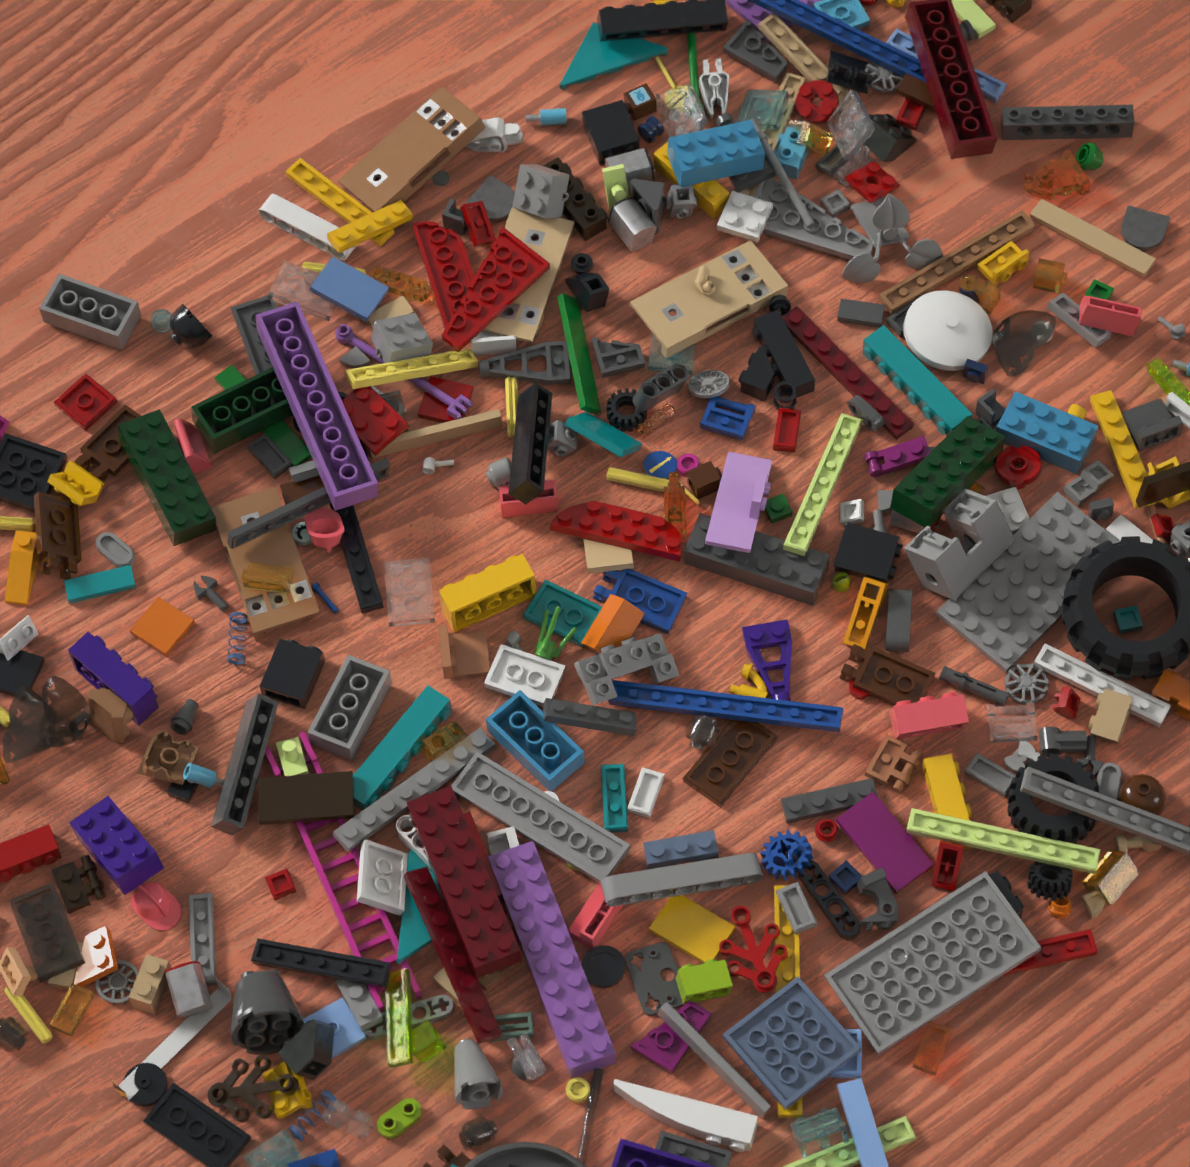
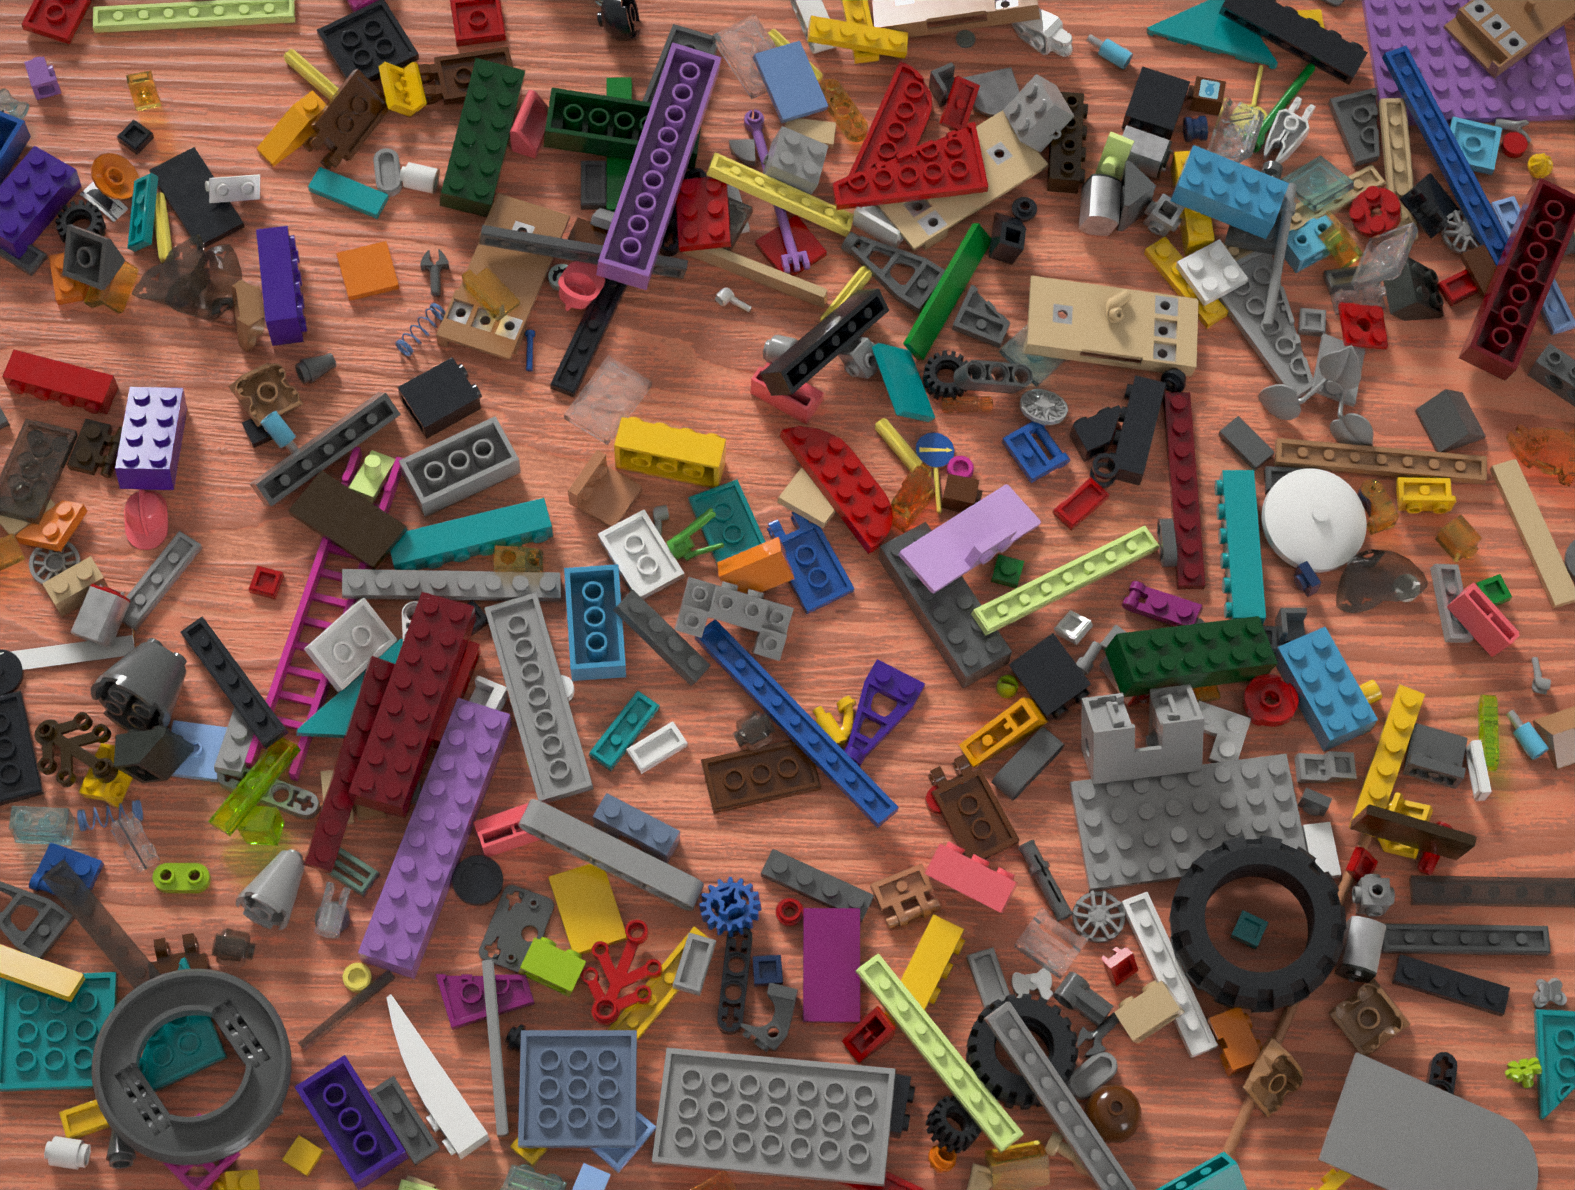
camera: 30 degrees right, 5 degrees up
(143, 537) = (420, 177): none -> white brick
(706, 231) = (1164, 259): none -> yellow plate
(720, 1045) = (514, 1038): none -> black plate
(978, 205) = (1449, 421): none -> dark grey slope

